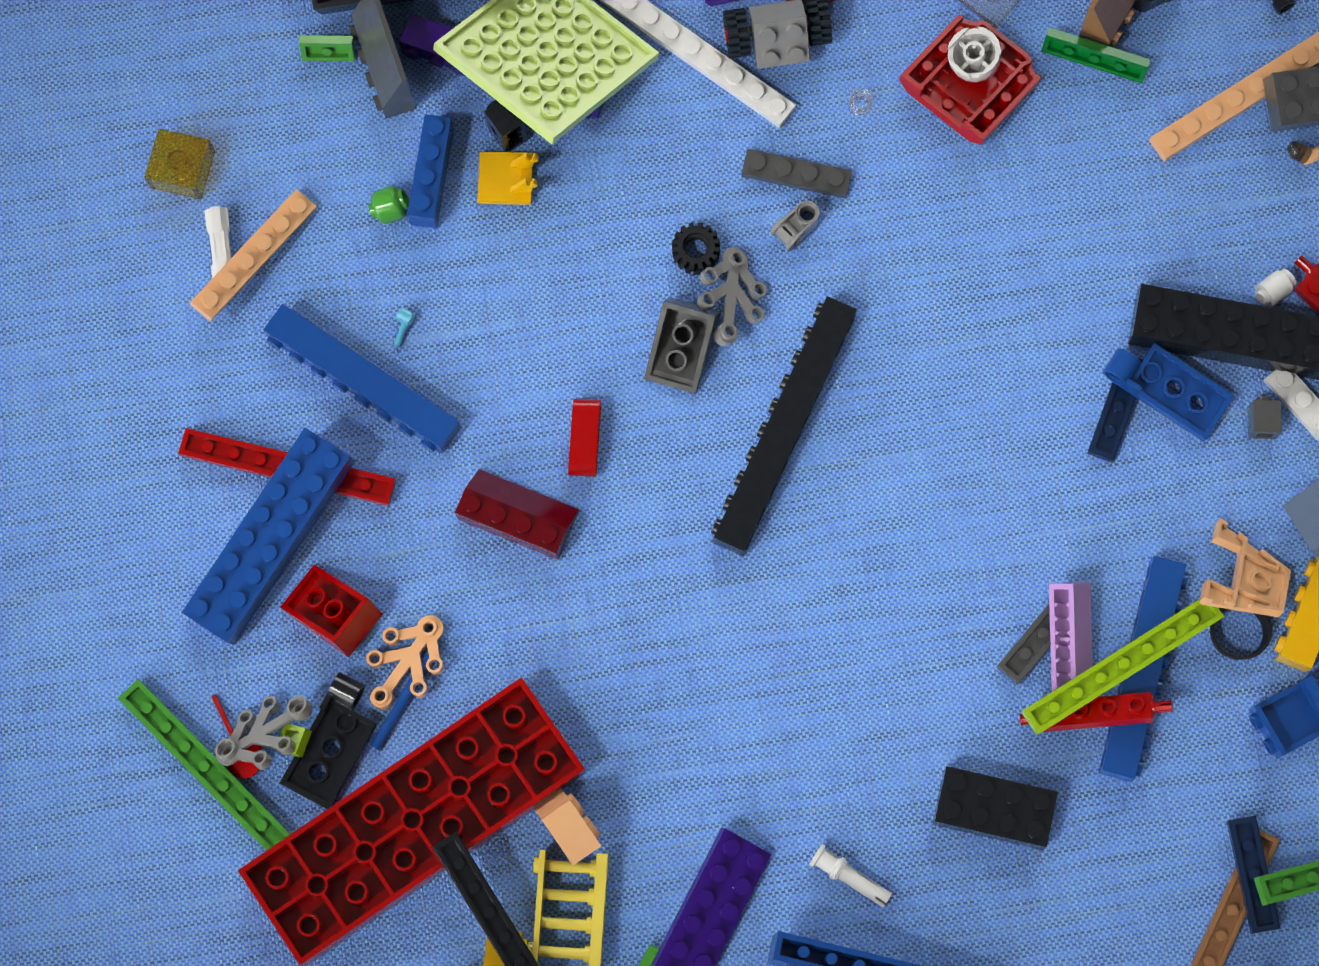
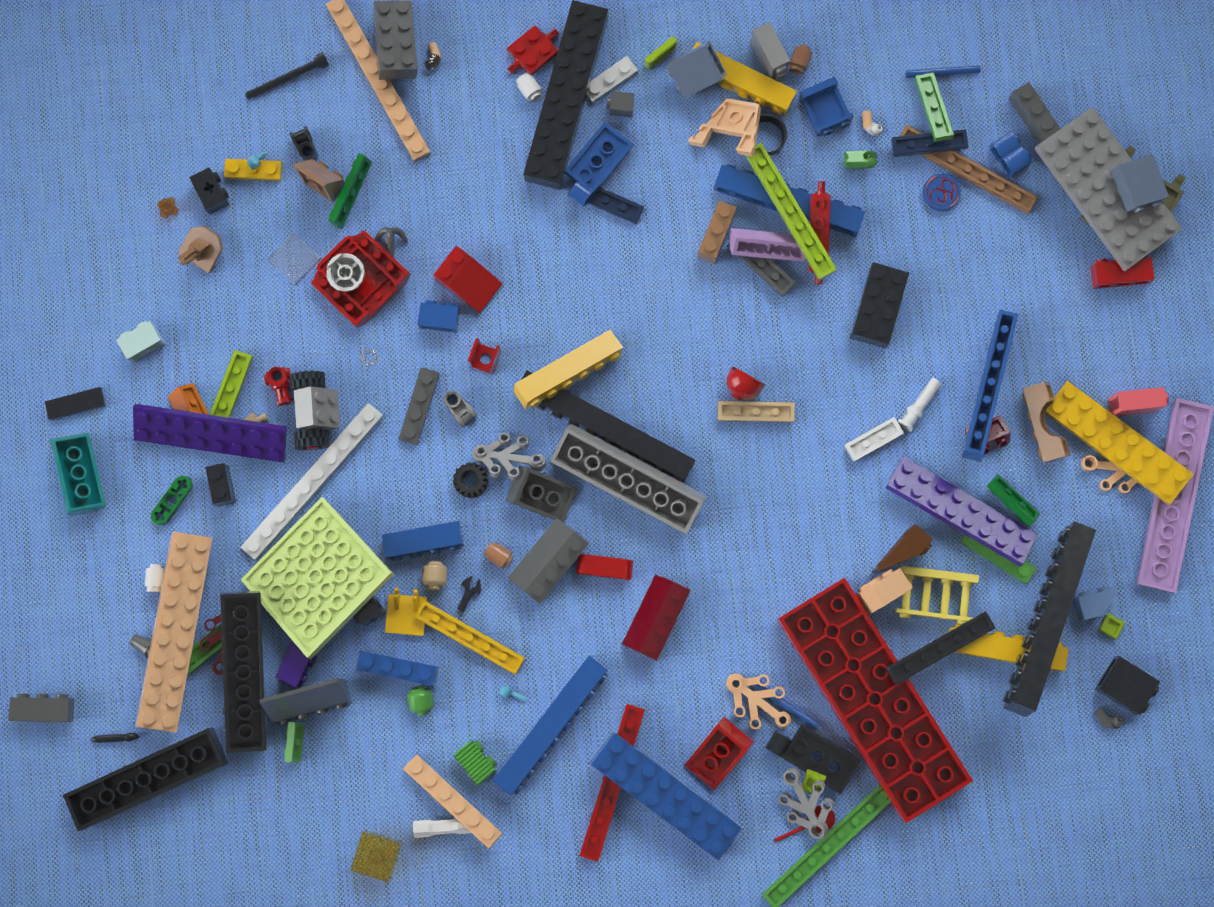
camera: 90 degrees left, 5 degrees up
(308, 283) = (475, 761): none -> bright green brick
(477, 263) = (469, 637): none -> yellow tile
(540, 259) = (468, 593): none -> black bar
(559, 210) = (434, 575): none -> tan head
(588, 358) = (548, 560): none -> dark grey slope
(593, 293) = (498, 555): none -> nougat brick
(608, 191) = (422, 540): none -> blue brick
(637, 864) = (911, 544): none -> reddish brown slope
(709, 459) = (628, 478): none -> light grey brick
(793, 810) = (873, 439): none -> white plate
(822, 637) = (756, 411): none -> tan plate
(859, 614) = (743, 385): none -> red cylinder
(860, 364) = (567, 370): none -> yellow brick
(872, 240) = (476, 353): none -> red piece
(924, 188) = (438, 317): none -> blue brick
(982, 222) = (467, 279): none -> red slope
(1035, 109) = (390, 237): none -> dark grey piece
(1084, 565) = (716, 232): none -> medium nougat brick
(1179, 898) = (941, 192): none -> blue tile
(1217, 771) = (860, 159): none -> bright green piece
(1272, 784) = (869, 126): none -> arm

